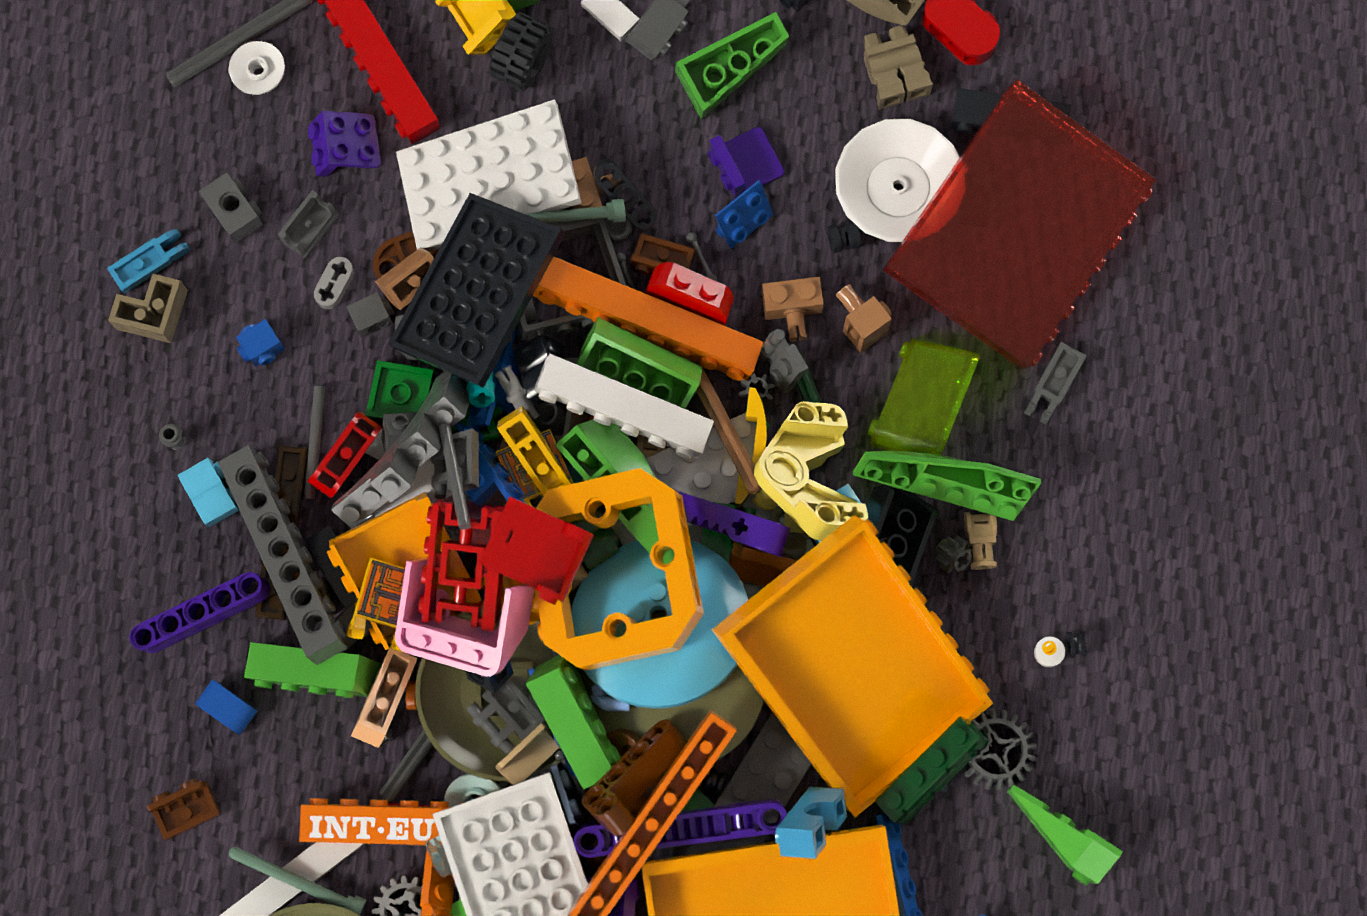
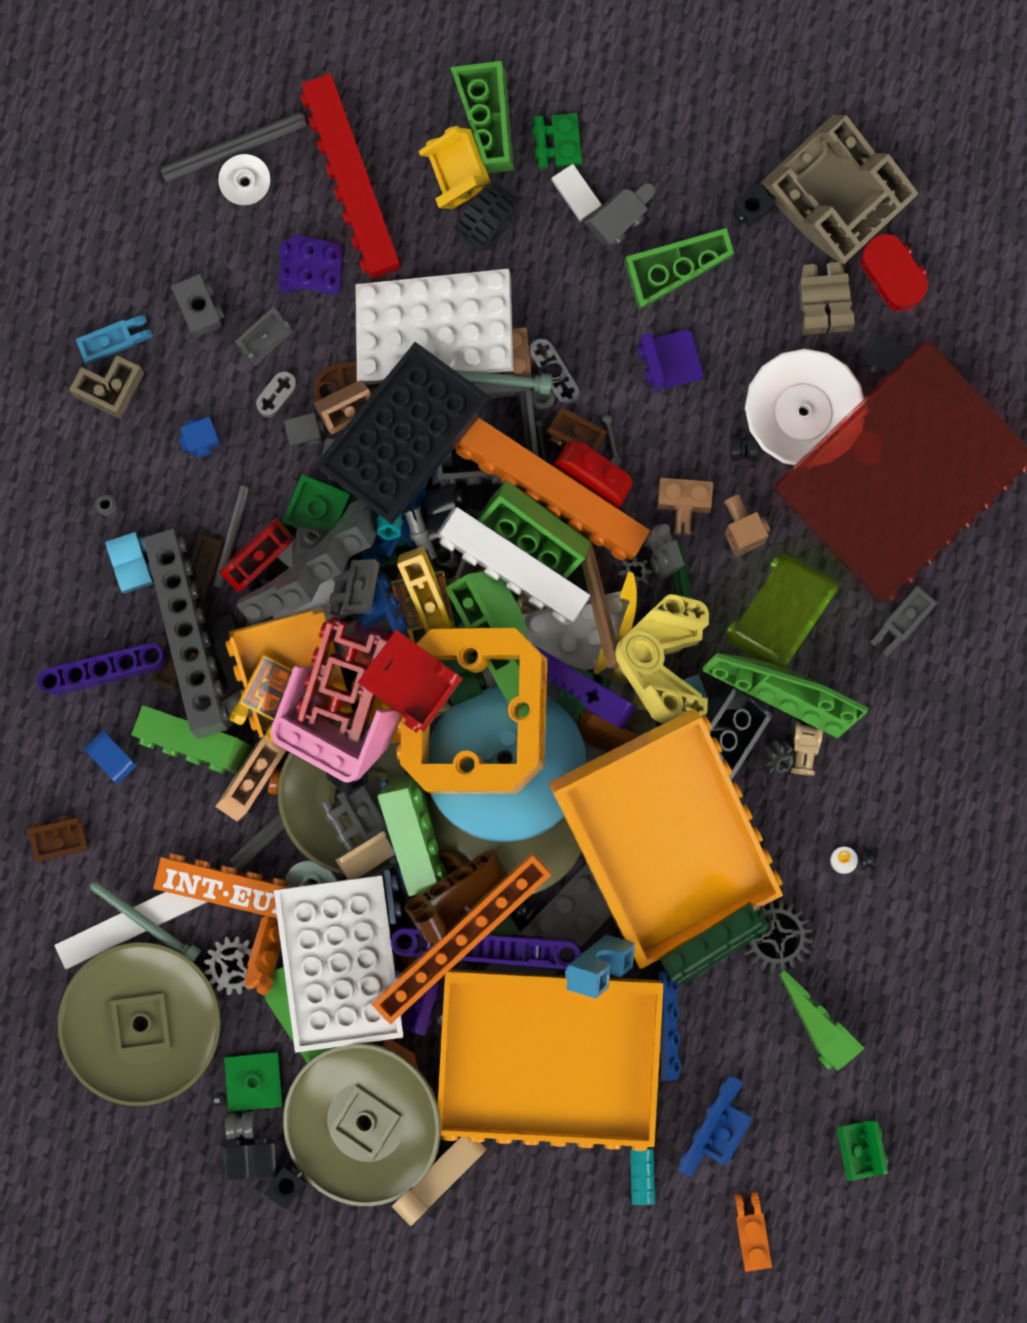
camera: 10 degrees right, 5 degrees up
(438, 857) = (271, 928): clear light blue tile -> none
(454, 476) = (351, 599): dark grey bar -> none
(606, 701) = (444, 824): light blue arm -> none
(743, 215) = (657, 410): blue hinge -> none

